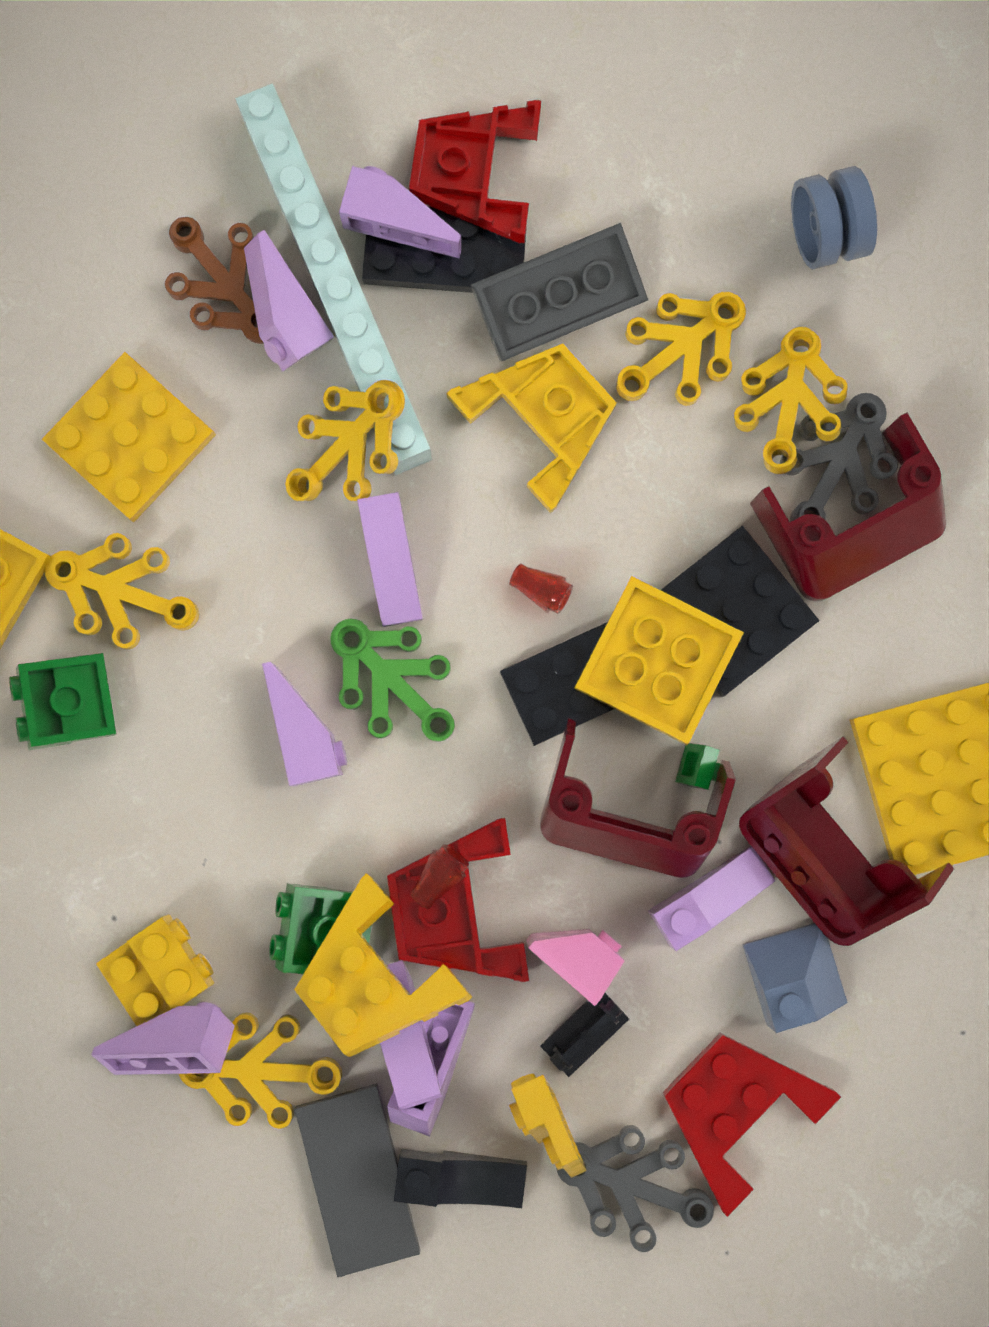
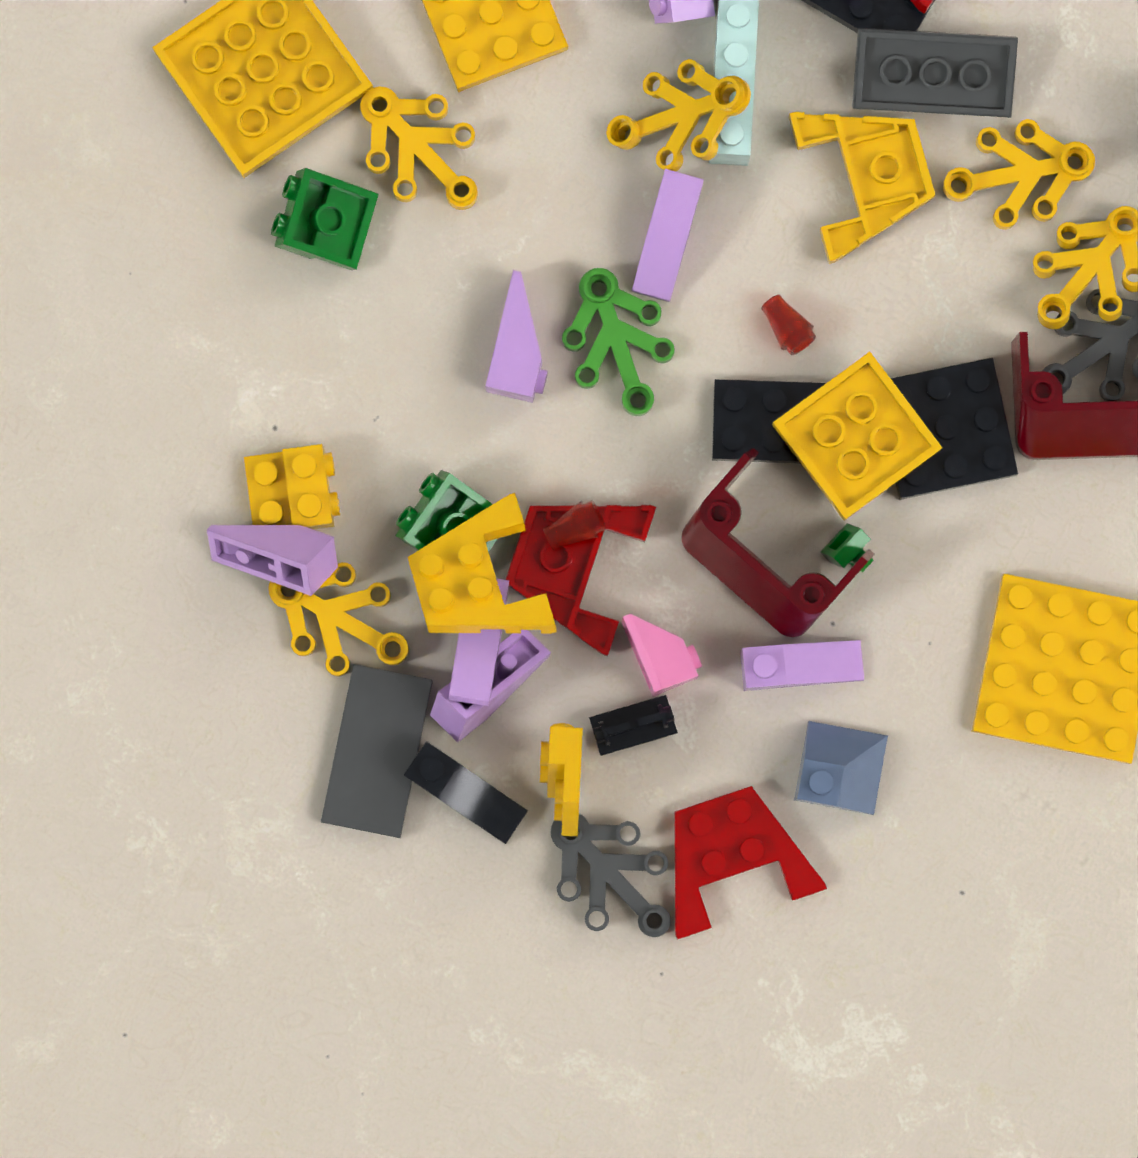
camera: 30 degrees right, 0 degrees up
(823, 865) = (911, 676): dark red windscreen -> none

